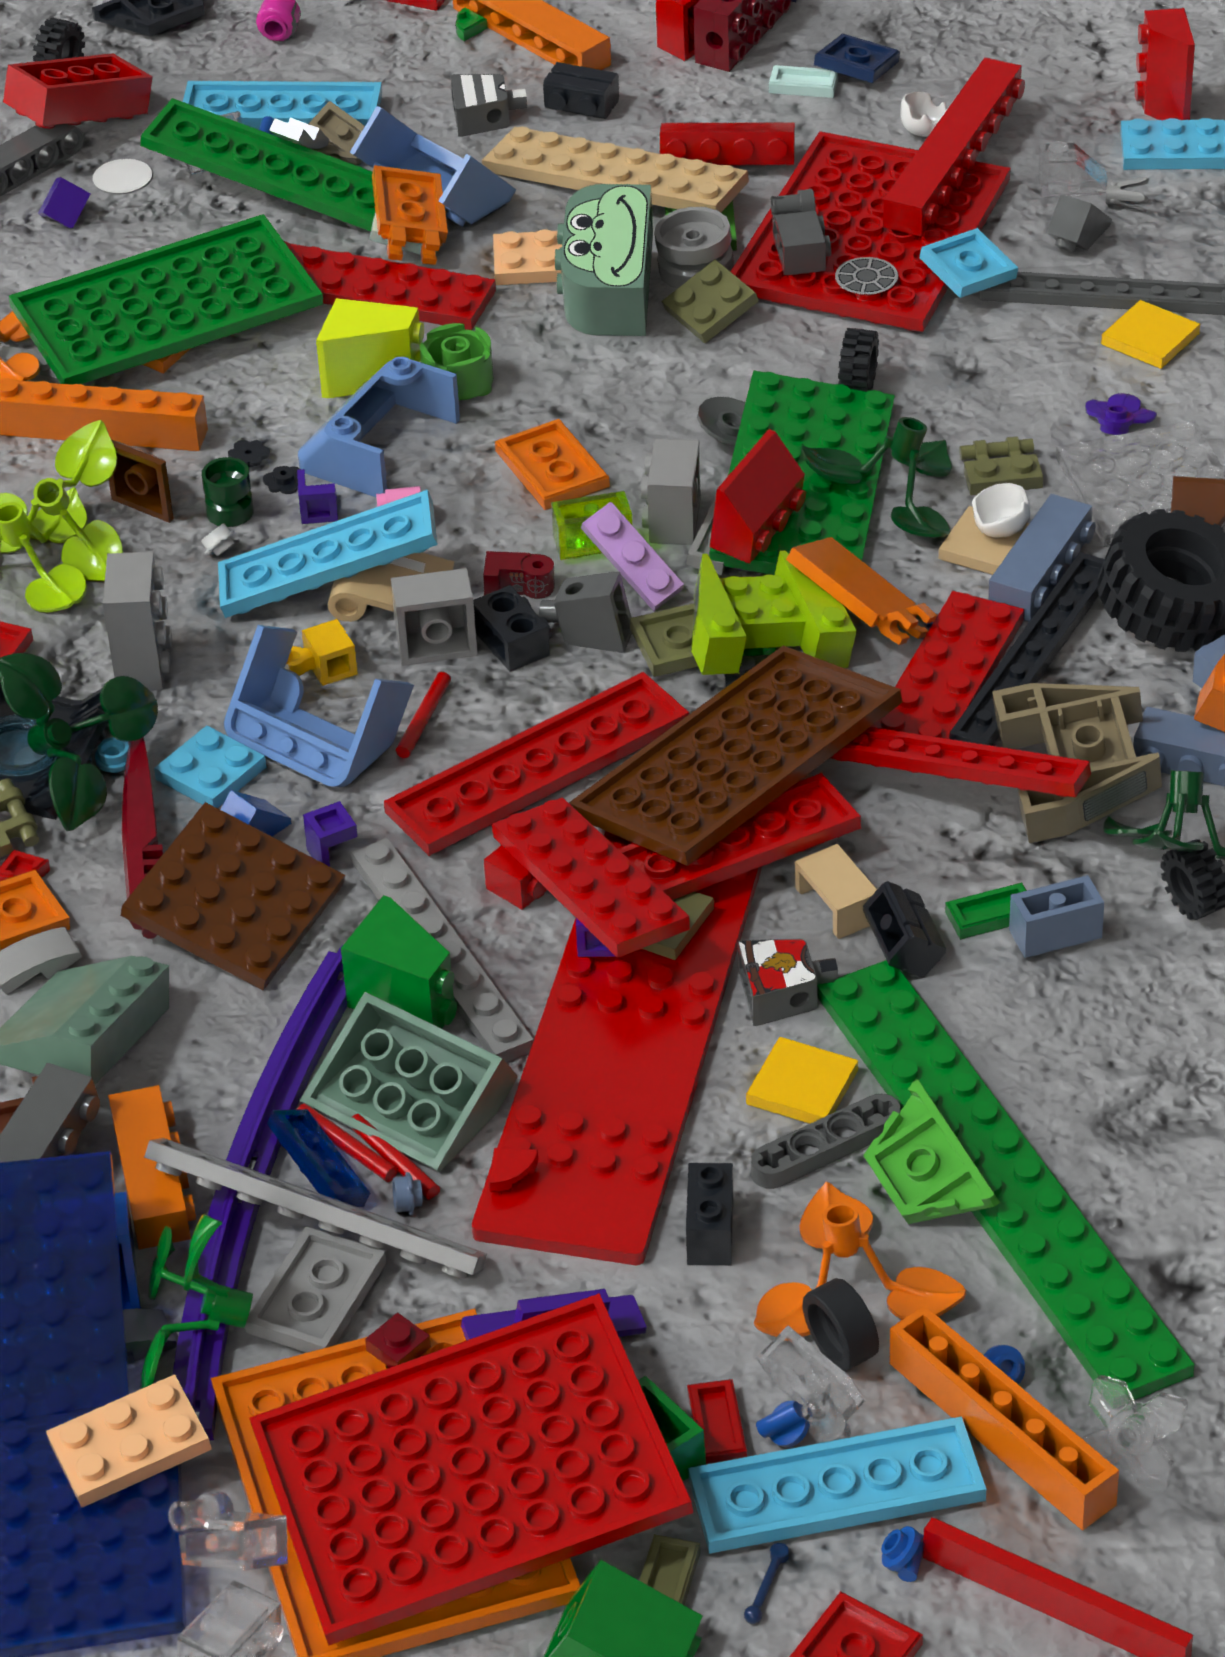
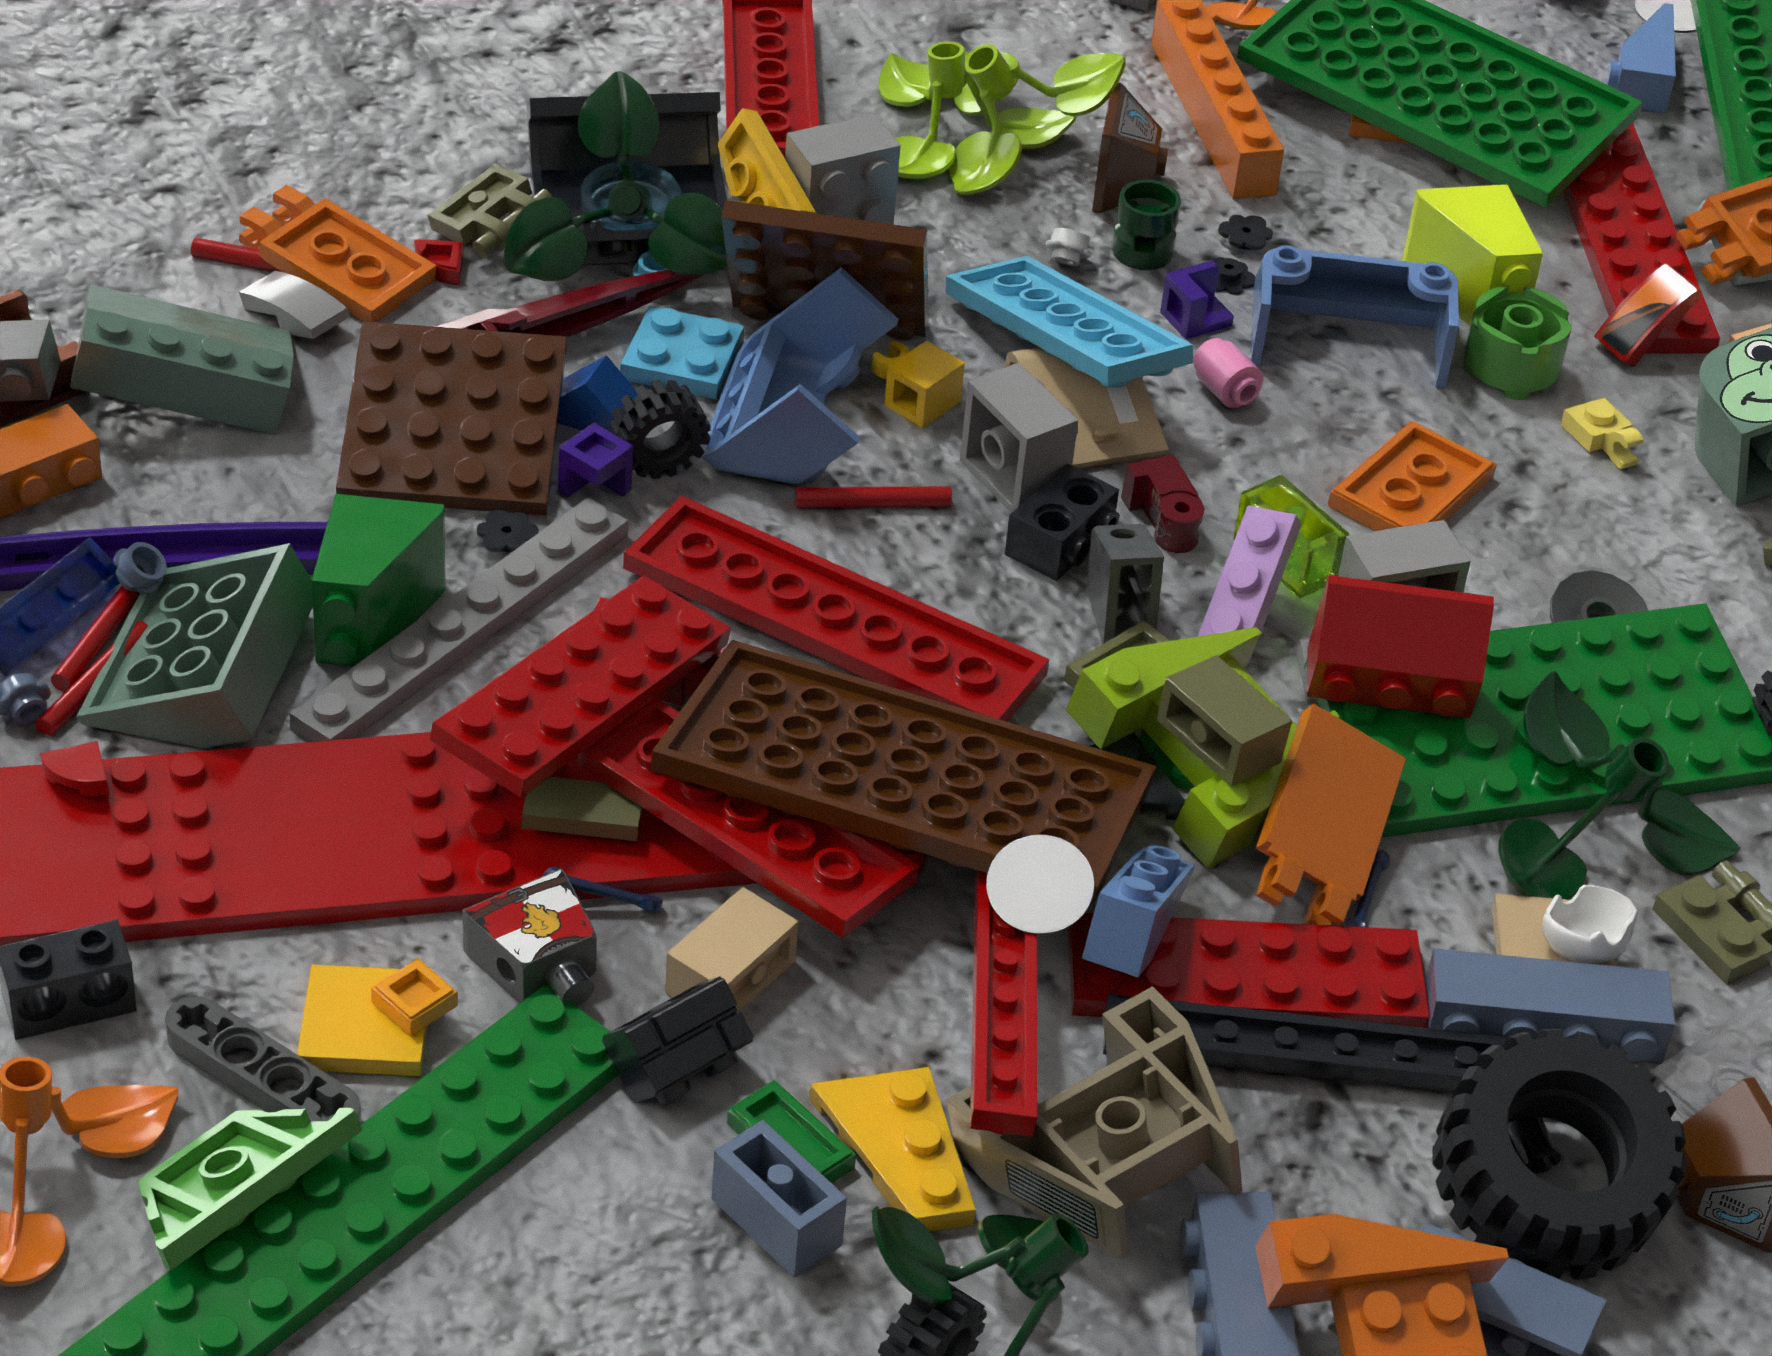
camera: 60 degrees right, 0 degrees up
(117, 649) = (756, 166): none -> yellow wing
(189, 203) = (1648, 62): none -> medium blue slope
(224, 645) = (787, 252): none -> reddish brown plate
(312, 1095) = (140, 567): none -> sand blue plate
(317, 781) = (655, 408): none -> black tyre
(356, 904) = (505, 530): none -> black plant
(467, 294) = (1653, 305): none -> slope
(548, 363) = (1603, 427): none -> light yellow plate
(730, 953) = (644, 901): none -> dark blue hinge
(787, 590) = (1224, 720): none -> olive brick
(805, 1046) = (414, 997): none -> light orange tile
(884, 713) = (1040, 884): none -> white sticker
(923, 690) = (1136, 910): none -> medium blue slope
(1007, 859) = (903, 1140): none -> yellow wing

